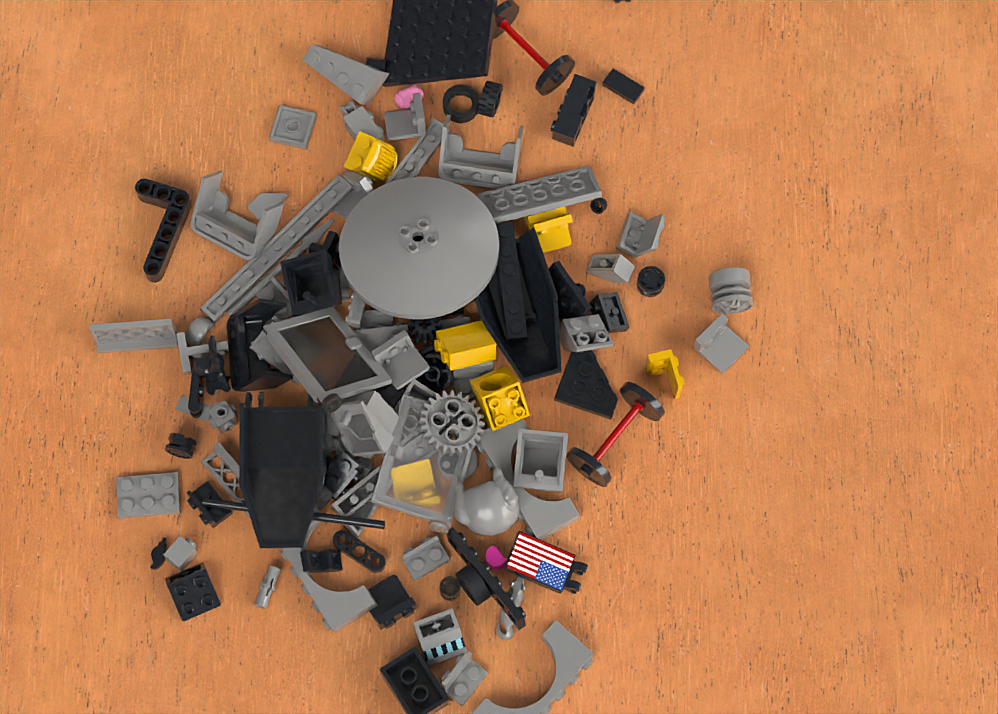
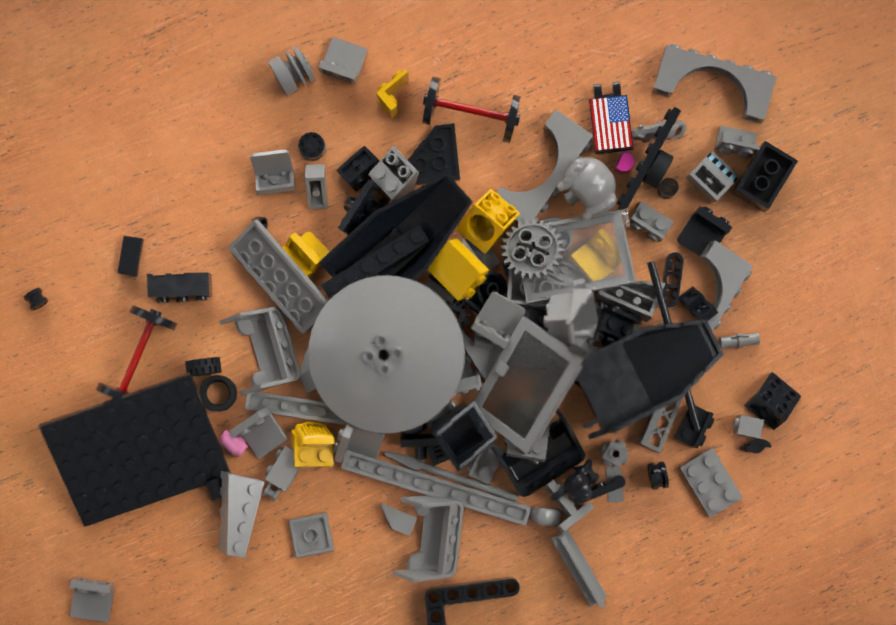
camera: 115 degrees left, 15 degrees up
(540, 460) = (528, 159): light grey piece -> none

